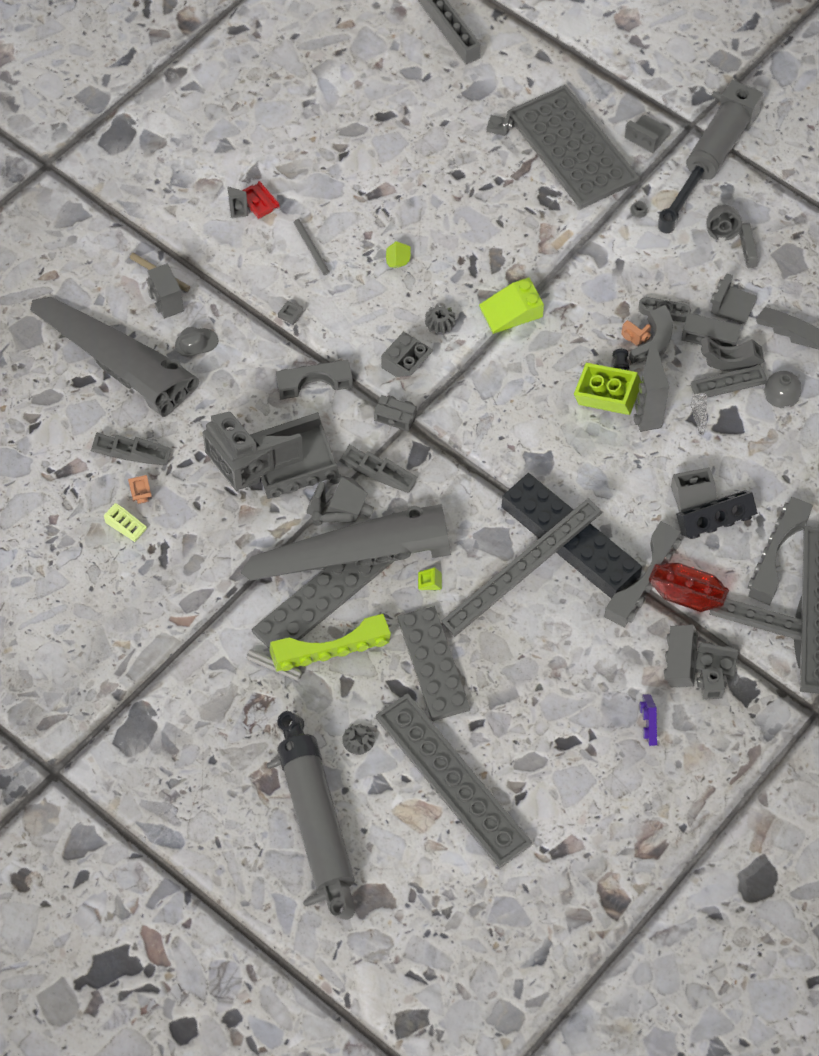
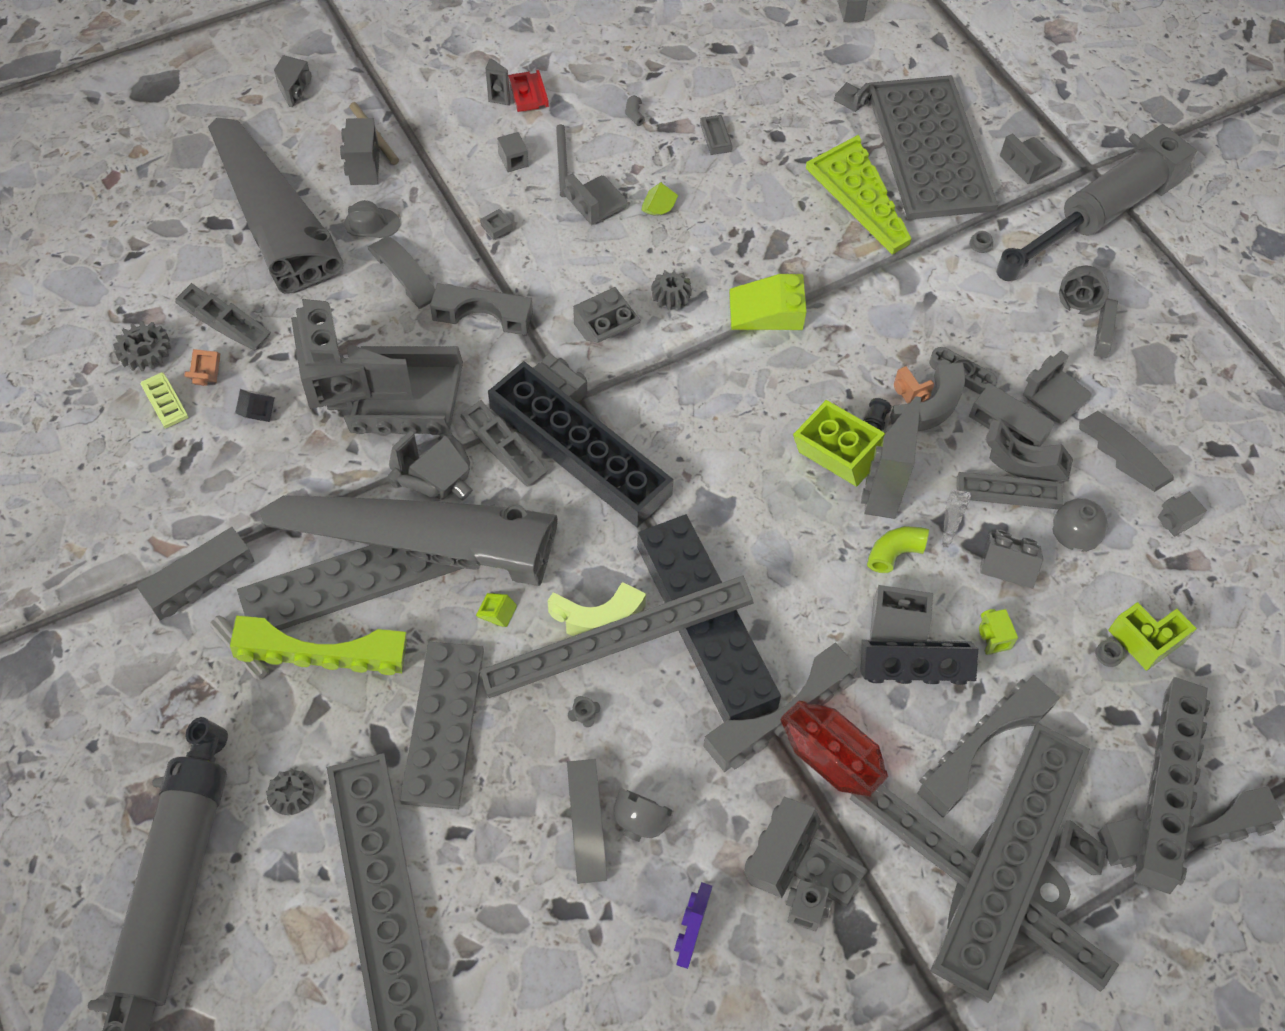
camera: 20 degrees right, 0 degrees up
(74, 249) = (292, 77): none -> dark grey slope
(86, 490) = (142, 346): none -> dark grey gear
(191, 503) = (254, 405): none -> black panel
(219, 628) = (195, 573): none -> dark grey brick
(241, 367) = (405, 269): none -> dark grey slope
(273, 253) = (513, 152): none -> dark grey brick
(343, 189) = (632, 112): none -> dark grey arm
(351, 268) = (595, 198): none -> dark grey bracket
(413, 188) = (716, 134): none -> dark grey tile
(432, 450) = (581, 444): none -> black brick
(494, 564) = (581, 619): none -> yellowish green arch
(519, 617) = (583, 703): none -> dark grey plate
(535, 196) = (859, 188): none -> lime wing
(554, 685) = (586, 821): none -> dark grey slope
(587, 669) = (640, 815): none -> dark grey cylinder
(669, 444) = (893, 544): none -> lime cylinder
(748, 427) = (1011, 558): none -> dark grey slope
(757, 477) = (997, 631): none -> lime brick

